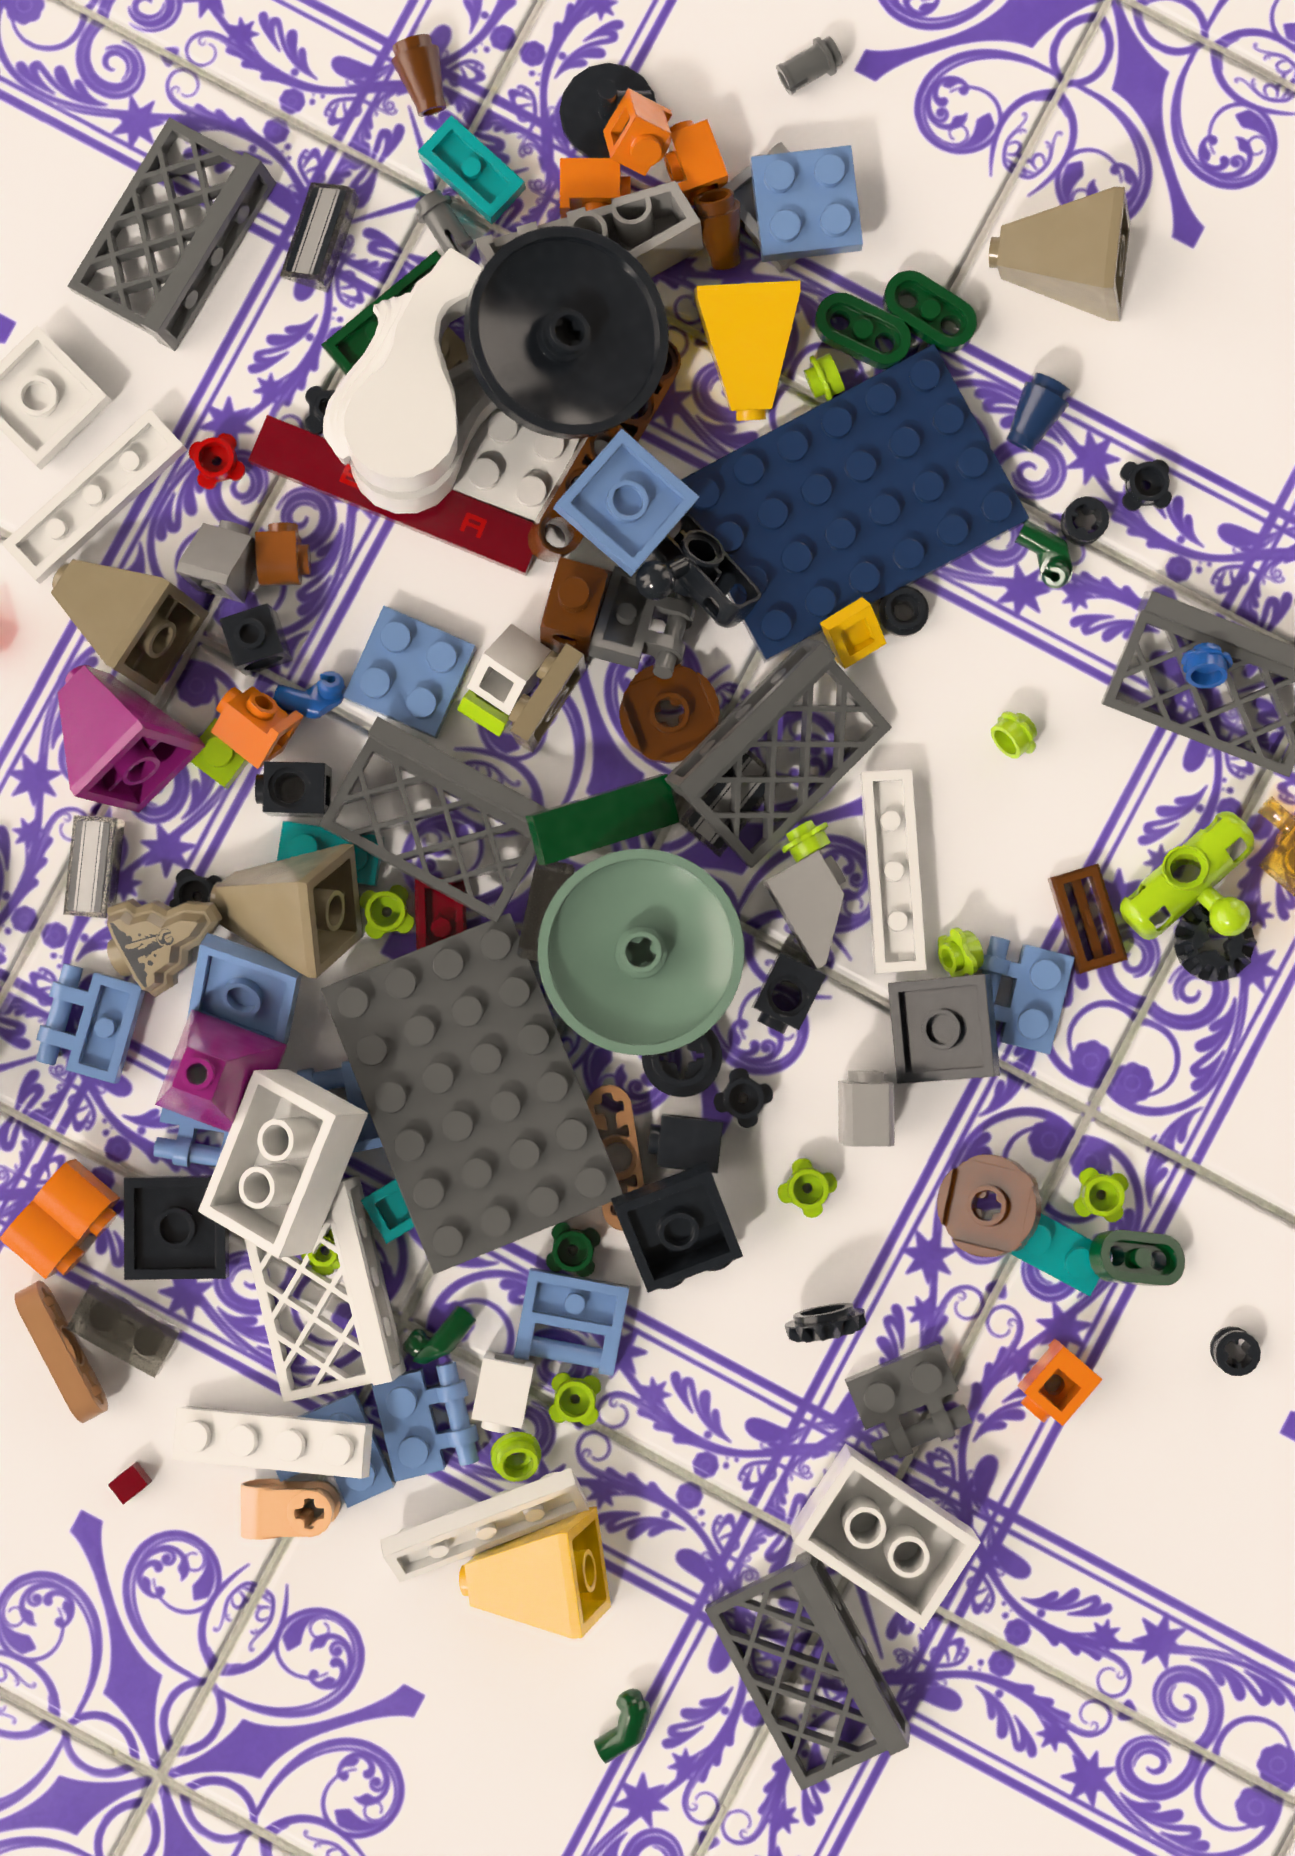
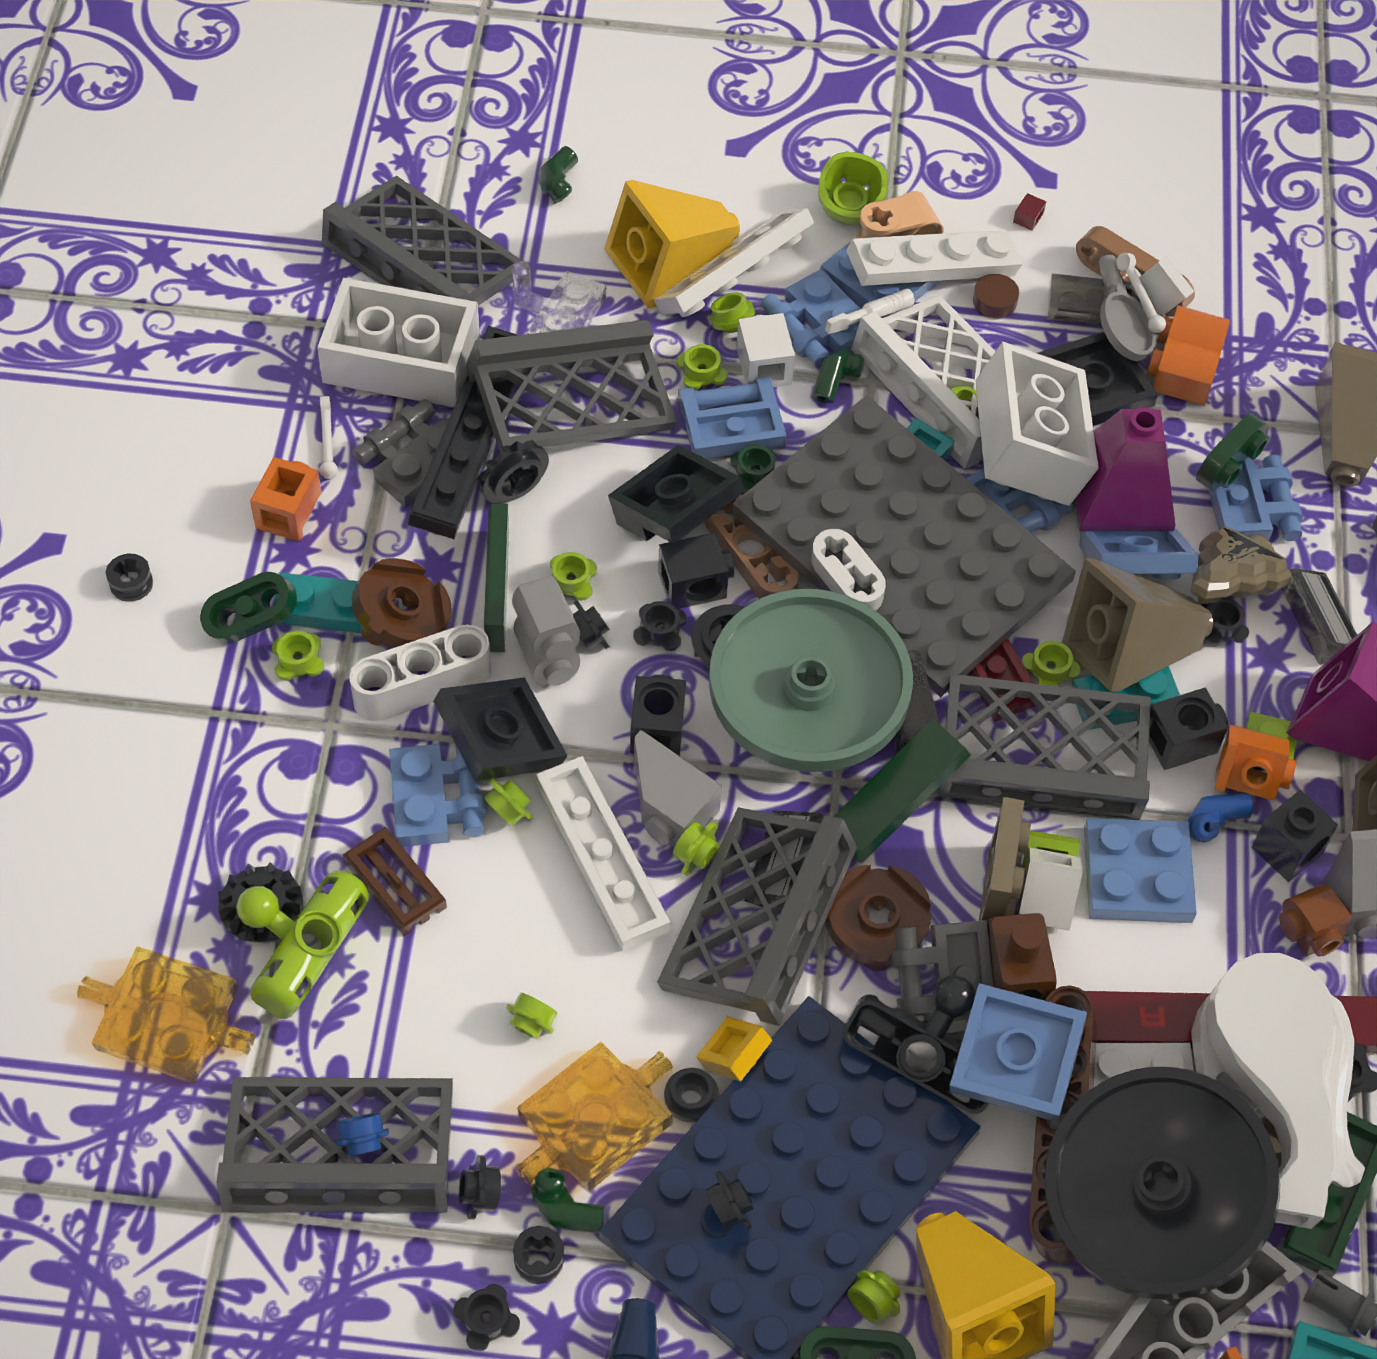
camera: 155 degrees right, 30 degrees down
(53, 1303) = (1164, 286): none -> white tile
(76, 1345) = (1127, 262): none -> white hinge
(110, 1052) = (1226, 458): none -> dark green plate
(110, 1282) = (1124, 316): none -> light grey piece
(222, 1380) = (996, 295): none -> reddish brown tile
(317, 1575) = (846, 200): none -> lime helmet
(369, 1395) = (882, 306): none -> white piece
(538, 1064) = (854, 566): none -> white beam
(690, 1528) = (569, 305): none -> clear plate
(721, 1452) = (564, 350): none -> dark grey fence
(815, 1118) = (590, 626): none -> black plate
(848, 1394) = (458, 458): none -> black tile
(883, 1209) = (496, 576): none -> dark green tile
(921, 482) = (730, 1202): none -> black plate
(993, 623) = (594, 1116): none -> clear yellow plate
(999, 1413) = (328, 468): none -> white hinge
(1017, 1133) = (404, 690): none -> white beam
(1115, 592) = (480, 1187): none -> black plate

